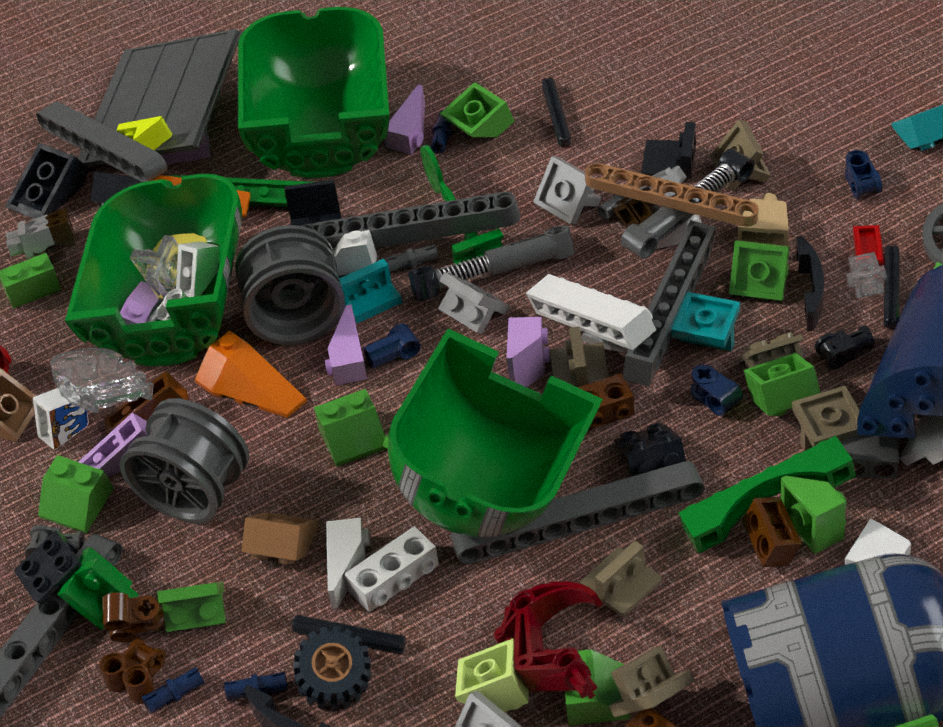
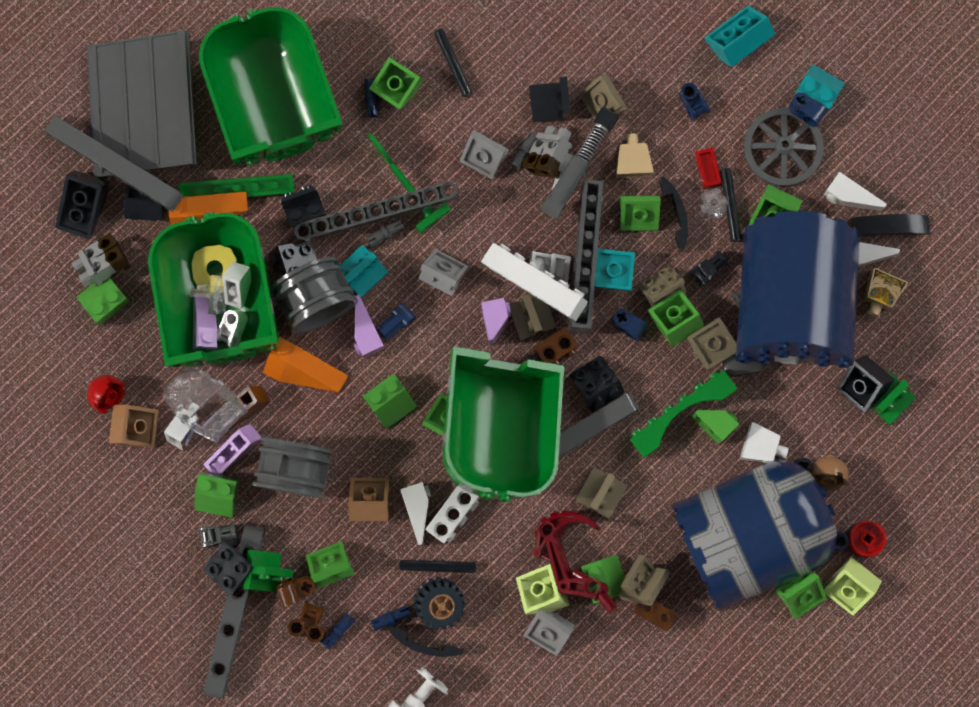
camera: 20 degrees left, 35 degrees up
(148, 132) = (151, 157): neon yellow slope -> none
(354, 252) = (342, 243): white slope -> none
(407, 124) = (344, 95): lavender slope -> none
(553, 244) = (487, 207): piece -> none
(679, 202) = (579, 166): medium nougat beam -> none
(771, 532) = (691, 442): reddish brown brick -> none

